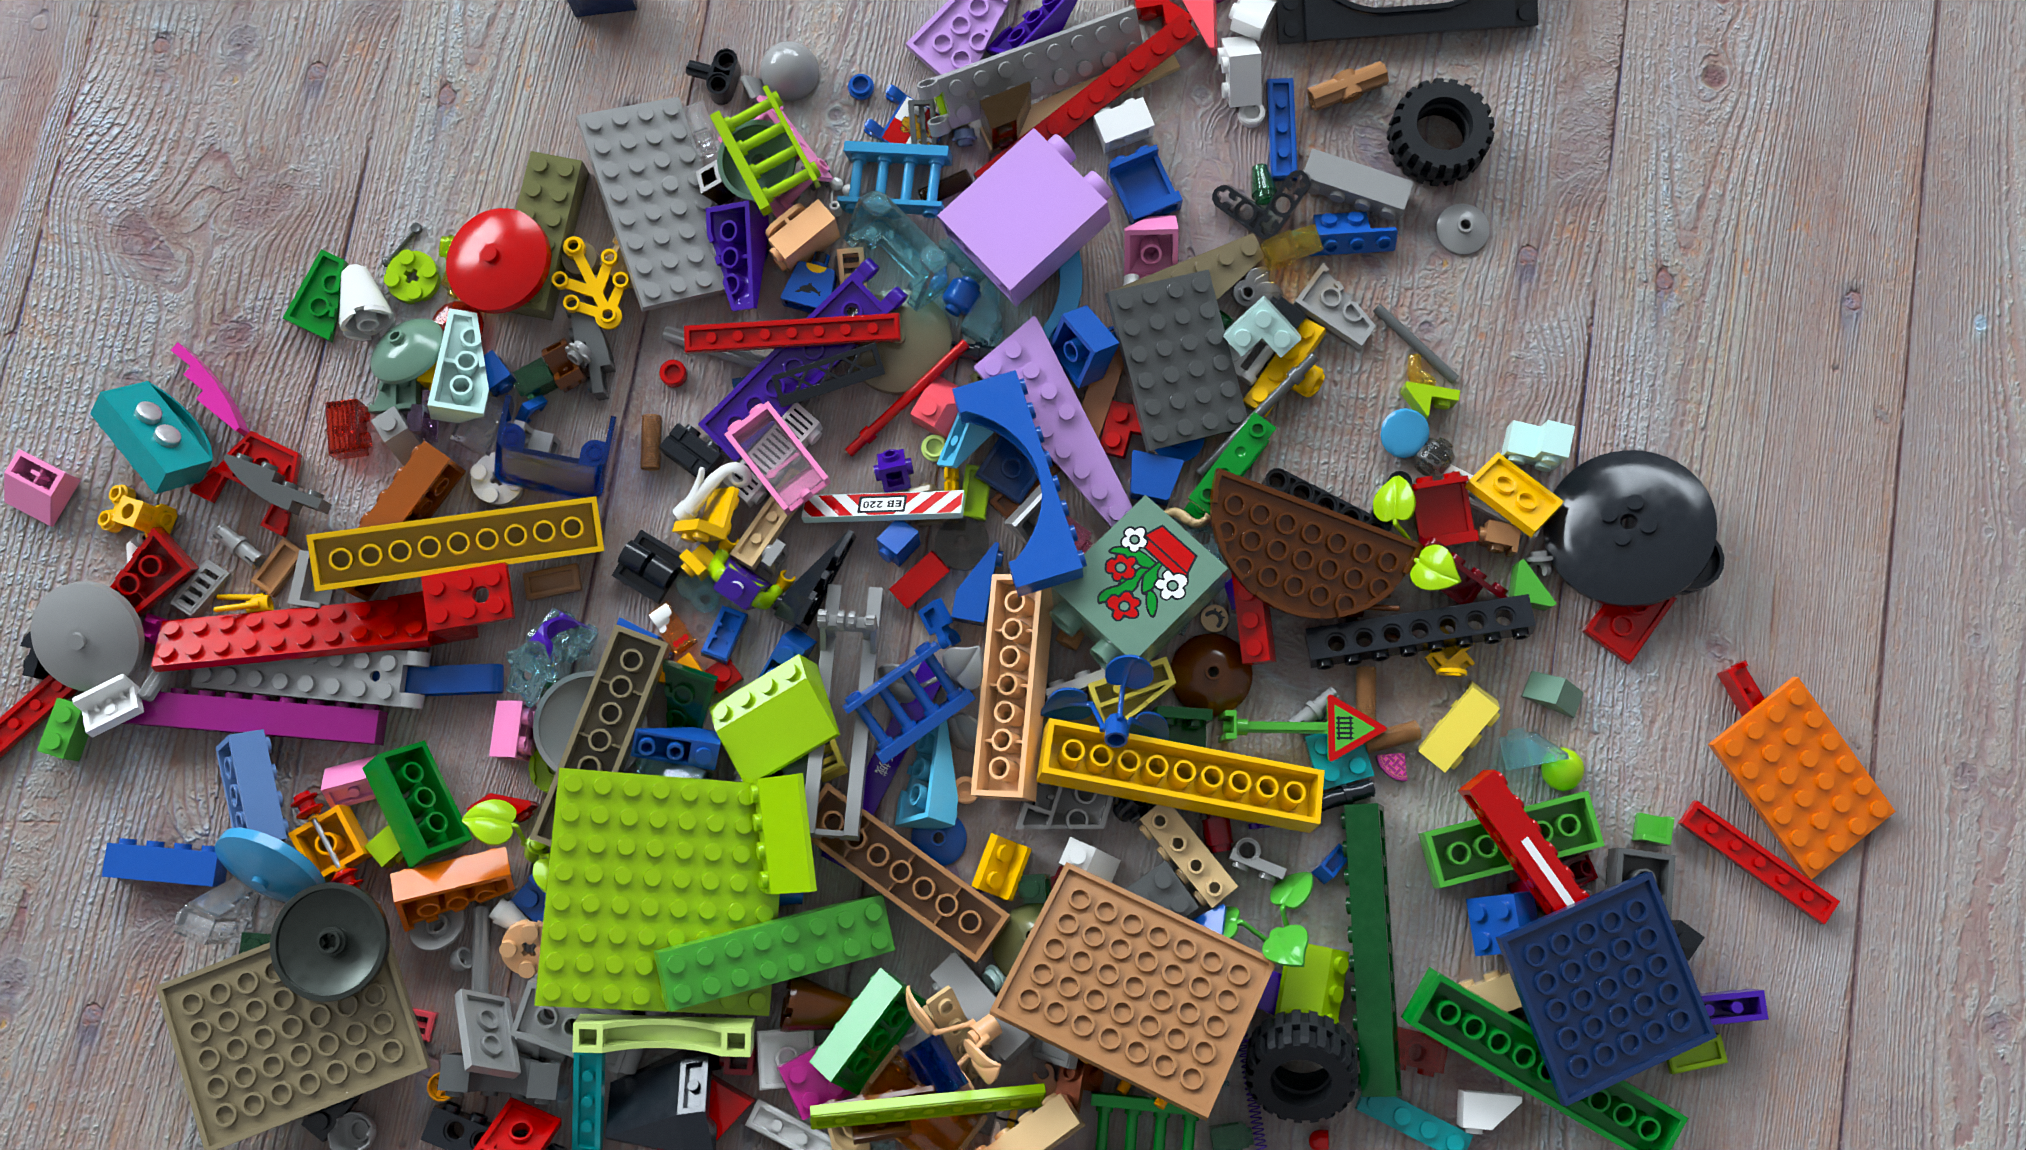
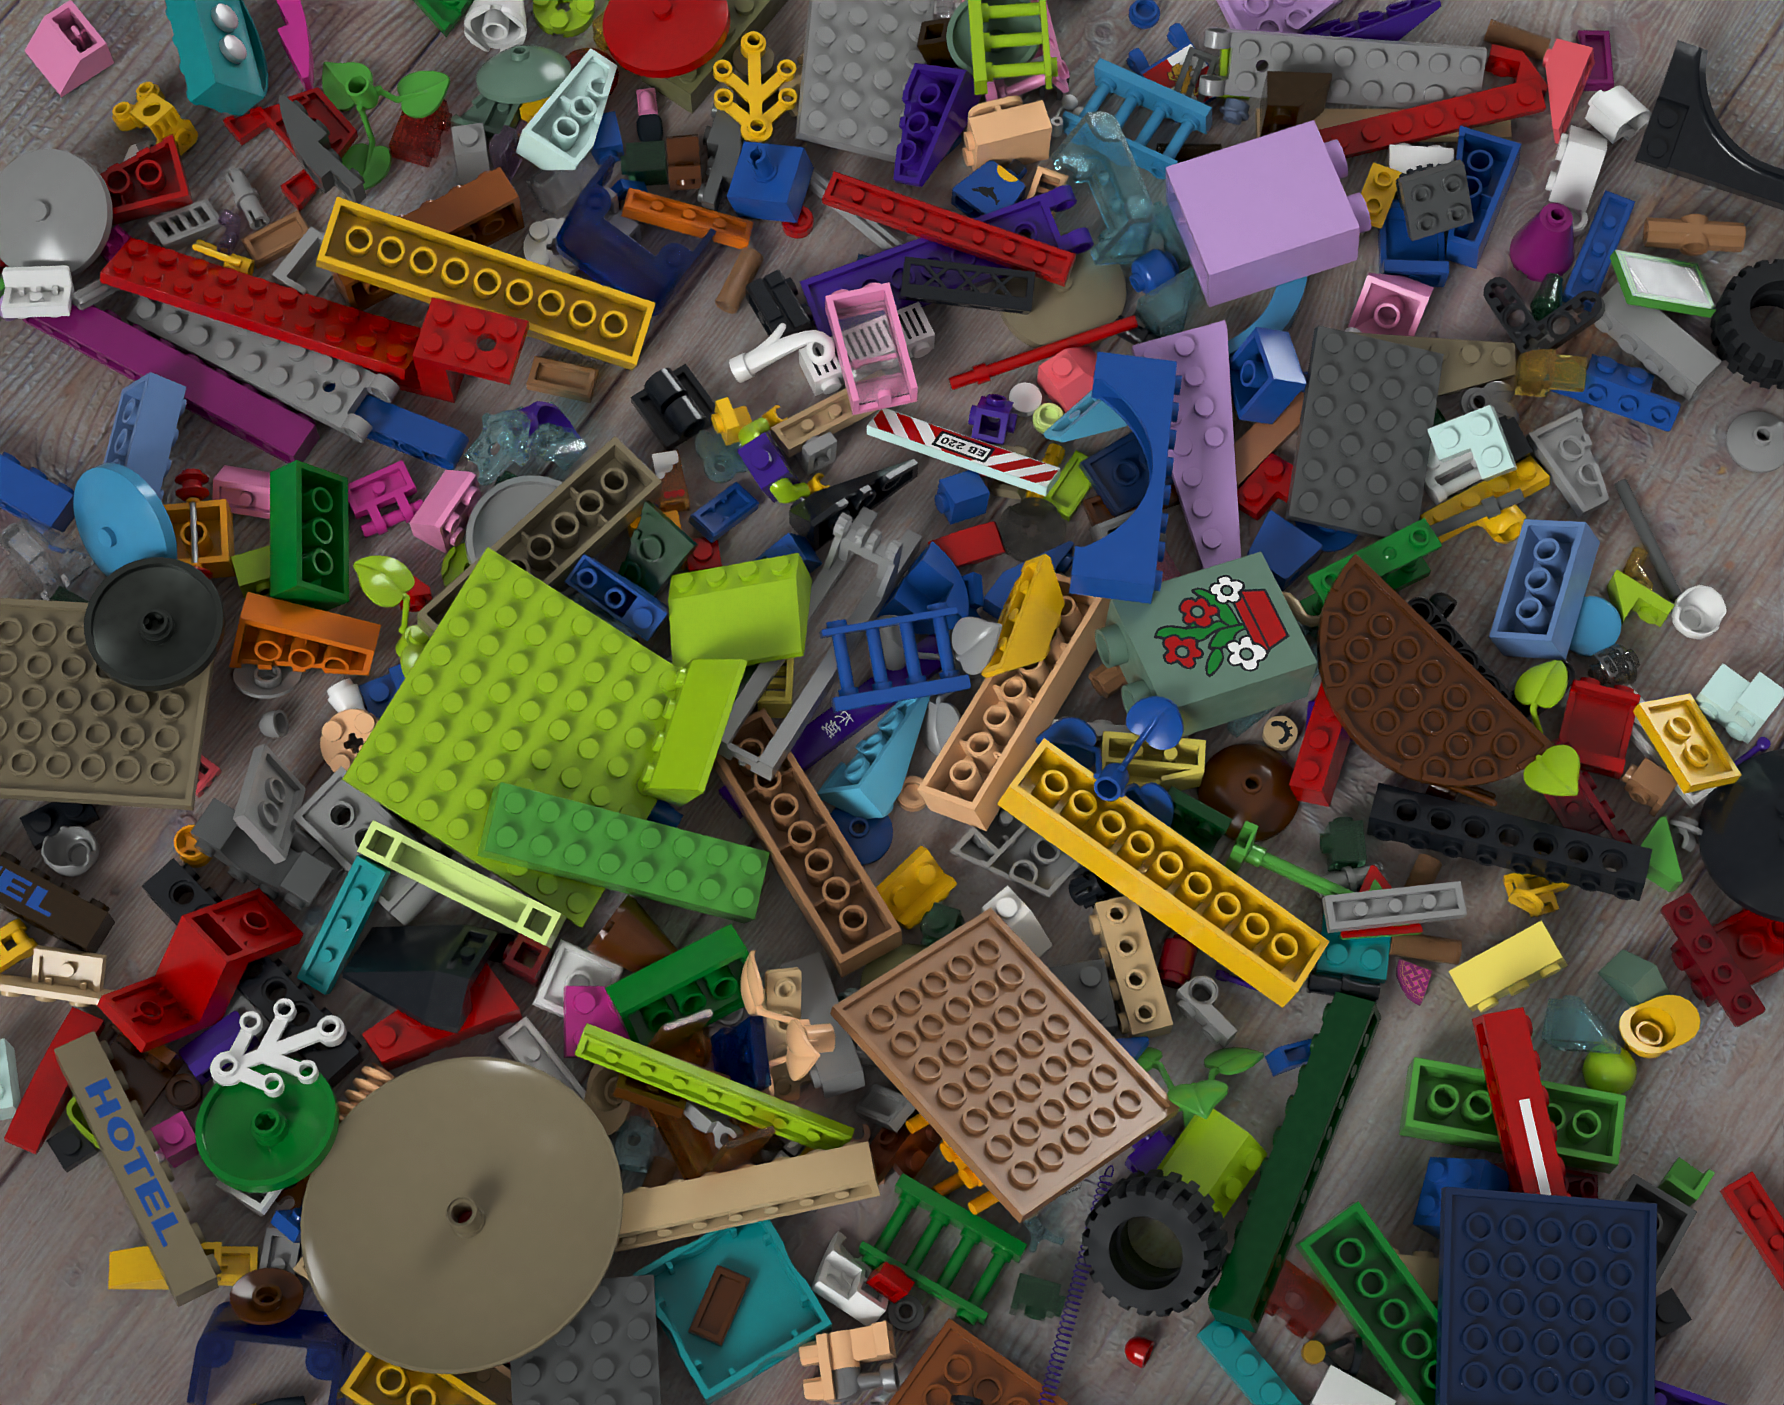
camera: 20 degrees right, 10 degrees down
(241, 583) = (231, 235): none -> clear purple arm
(276, 421) = (353, 85): none -> bright green plant
(454, 736) = (380, 490): none -> dark pink plate
(480, 949) = (302, 720): light grey axle -> none
(522, 343) = (649, 123): none -> piece
(578, 353) = (706, 151): light grey plate -> none
(588, 411) = (686, 218): none -> orange tile
(638, 353) = (770, 182): none -> blue brick
(715, 521) = (758, 391): yellow bracket -> none
(905, 628) = (929, 581): none -> blue brick
(910, 440) = (1025, 398): none -> white tile
(946, 1125) = (712, 1121): none -> light grey plate
(994, 628) = (1028, 618): none -> yellow wedge
(1102, 158) = (1379, 192): none -> yellow bracket
(1148, 147) = (1434, 198): none -> dark grey plate
(1174, 115) = (1489, 172): none -> blue wedge
(1241, 144) = (1544, 243): none -> magenta cone
(1288, 463) = (1443, 603): none -> black hinge
(1299, 685) = (1343, 843): none -> clear green brick
(1343, 137) = (1662, 283): none -> tile
(1359, 722) = (1394, 906): none -> light grey plate
(1361, 421) = (1544, 589): none -> medium blue brick
(1445, 1081) = (1315, 1352): none -> black piece
(1478, 386) = (1698, 612): none -> white hair
(1565, 466) = (1762, 745): none -> dark purple hinge
(1586, 722) = (1659, 1025): none -> yellow piece
(1601, 657) = (1708, 962): none -> dark red bracket

